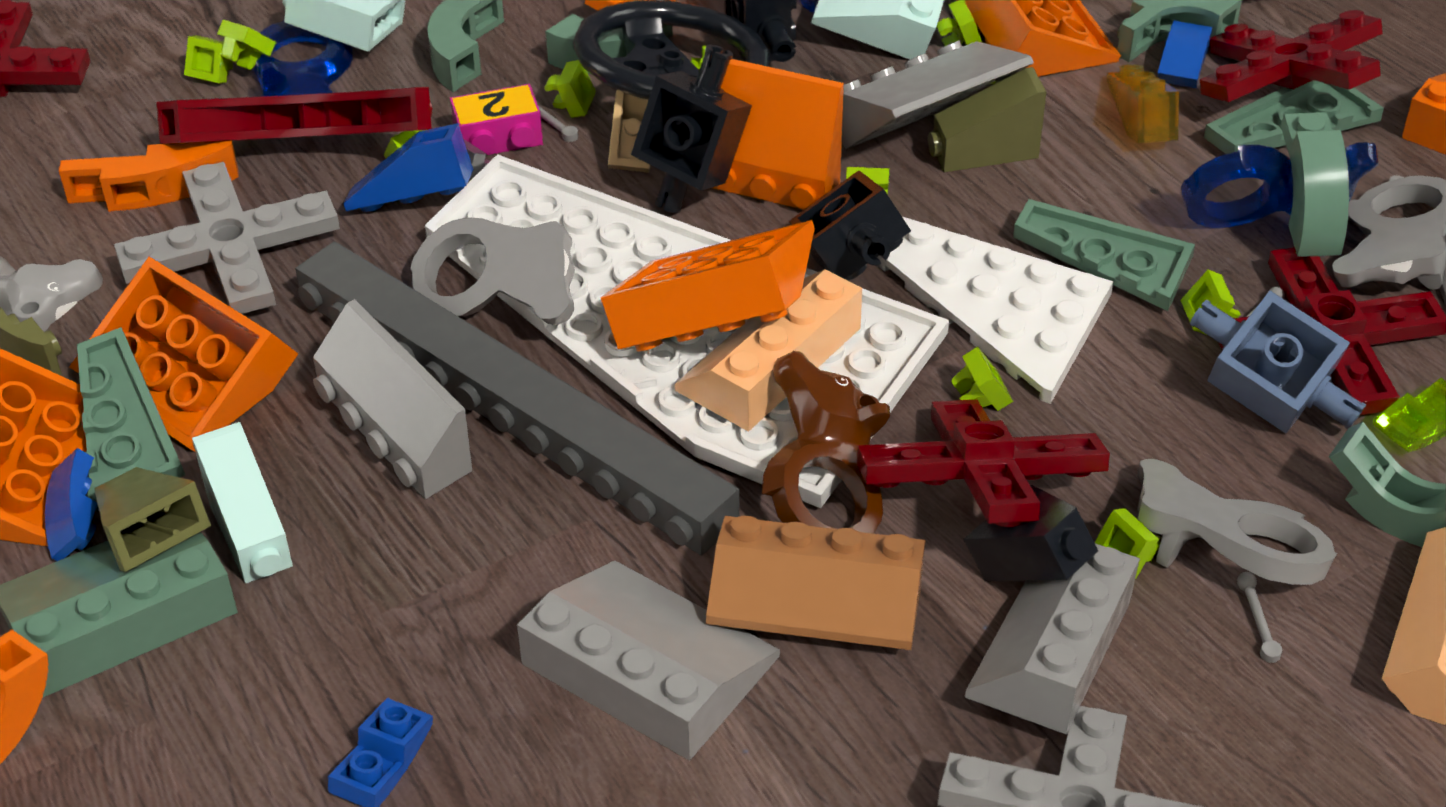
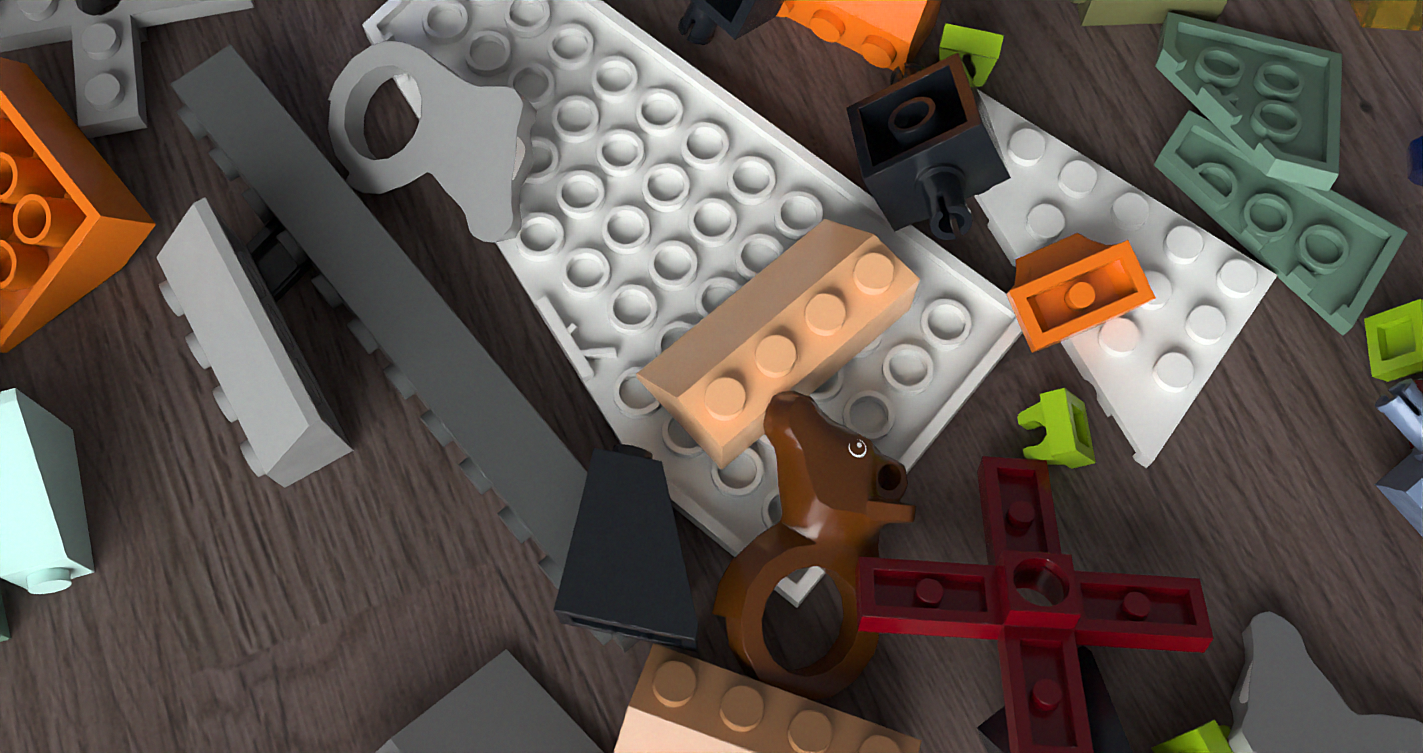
camera: 10 degrees right, 25 degrees up
(699, 465) = (626, 555): none -> black slope
(710, 288) = (713, 237): orange slope -> none
(976, 298) = (1075, 288): none -> orange slope
(1081, 184) = (1262, 93): none -> sand green plate

